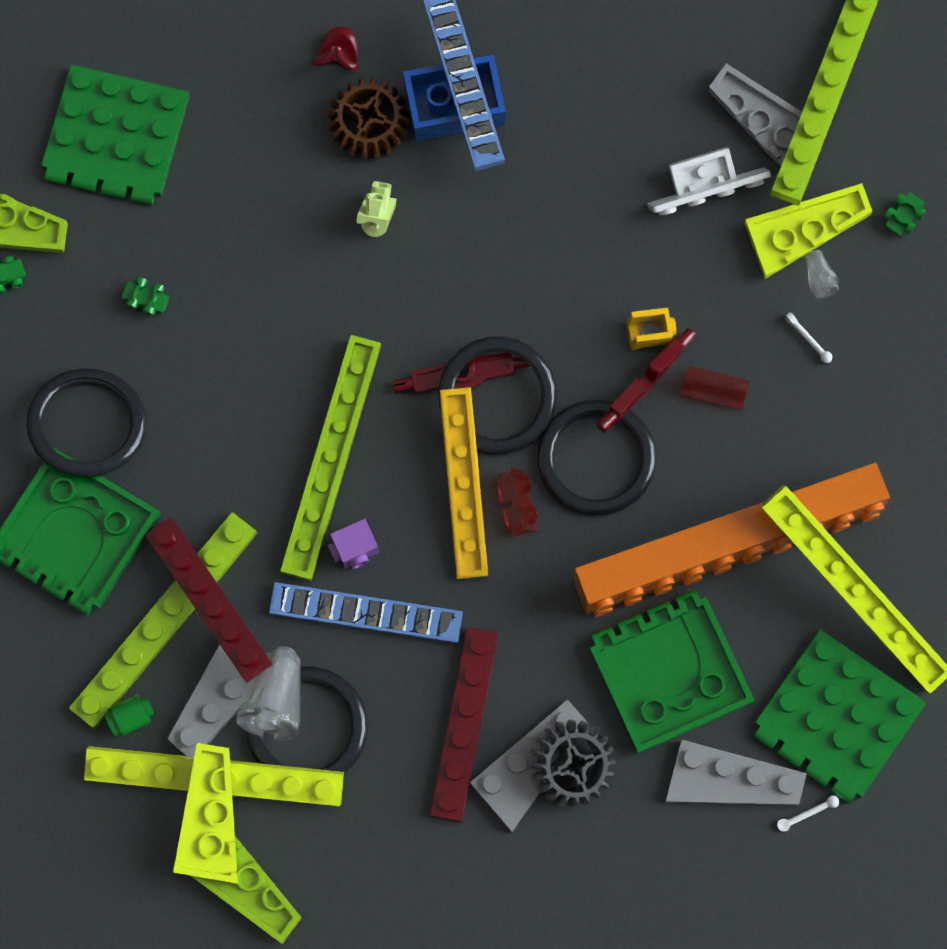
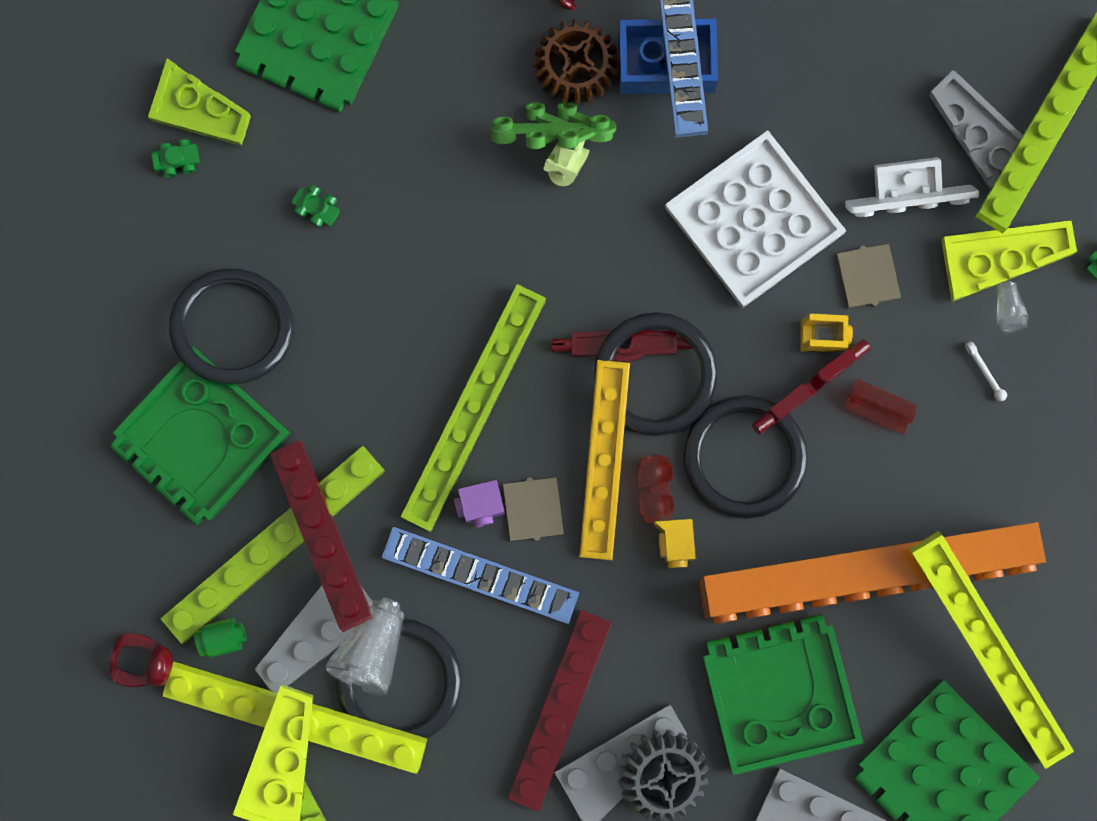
camera: 10 degrees right, 5 degrees up
(76, 752) = (158, 667): none -> dark red piece
(399, 177) = (595, 128): none -> bright green plant
(405, 543) = (533, 509): none -> dark tan piece
(545, 547) = (676, 542): none -> yellow window
(565, 235) = (755, 219): none -> white plate
(682, 269) = (868, 276): none -> dark tan piece

